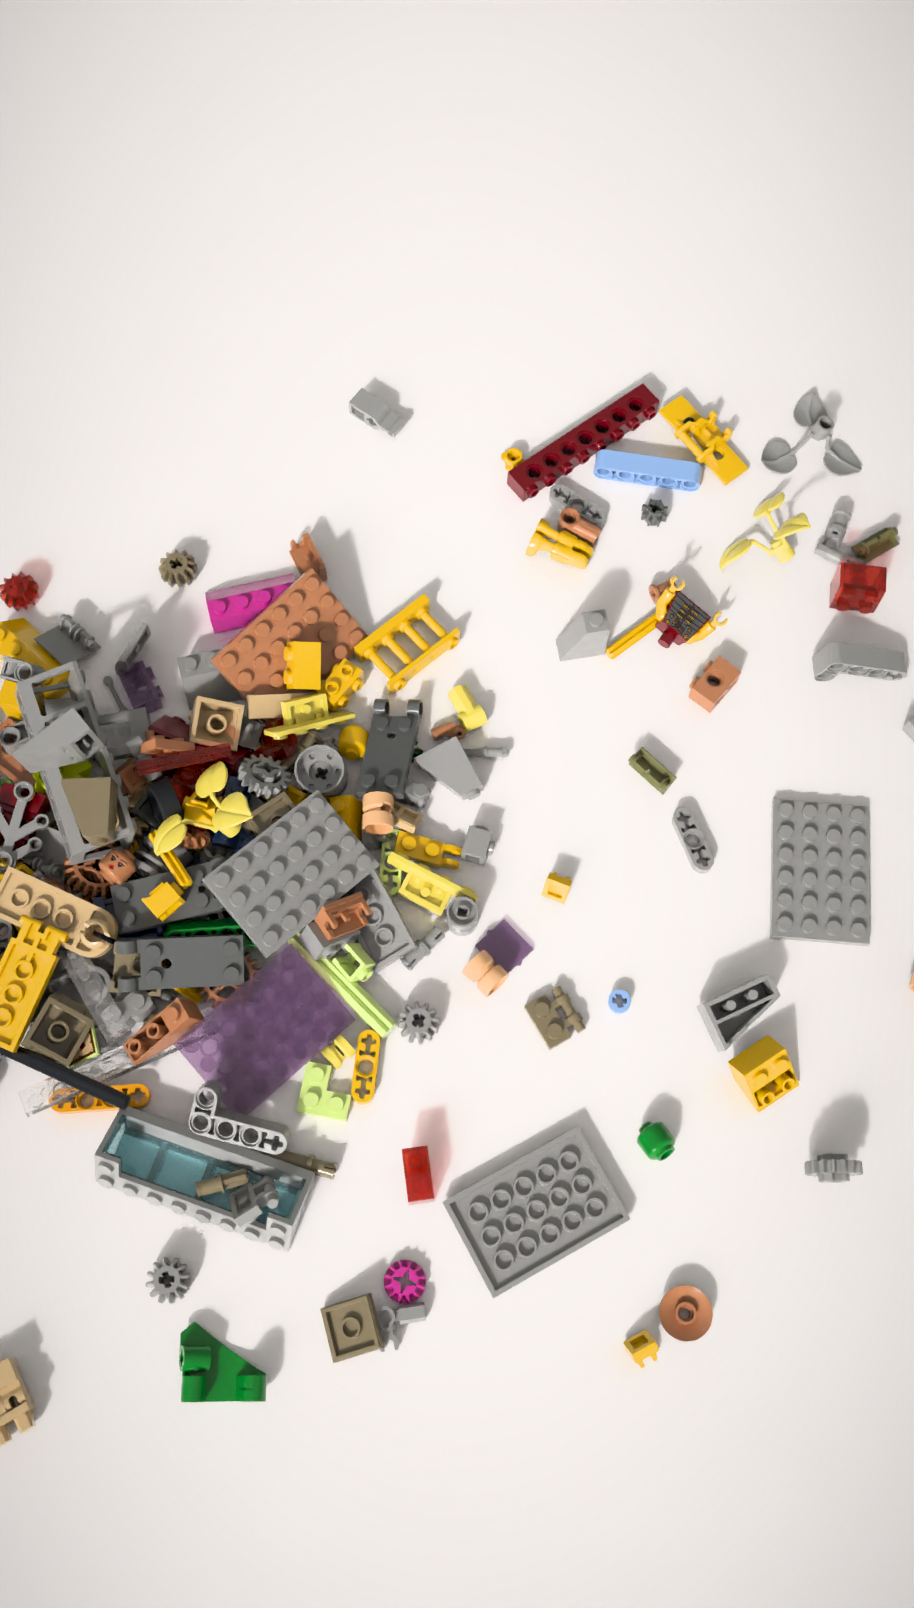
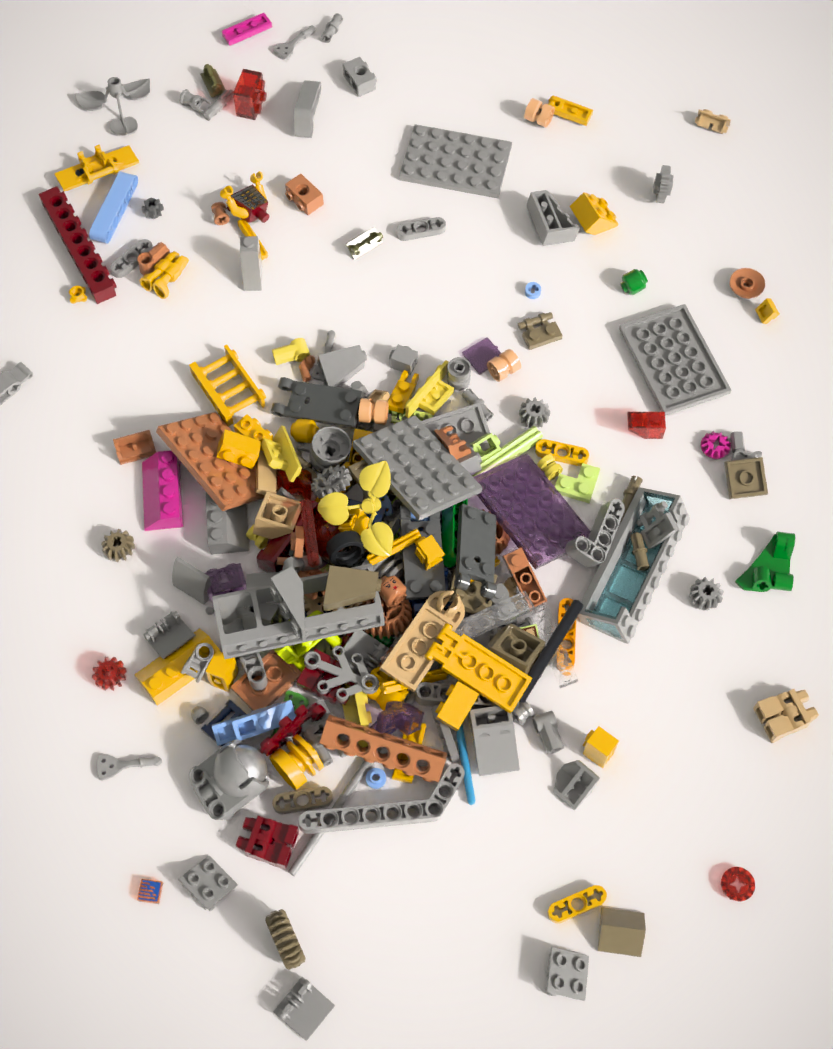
camera: 80 degrees left, 5 degrees down
(557, 887) = (444, 313): yellow tile -> none
(779, 545) = (199, 115): light yellow plant -> none

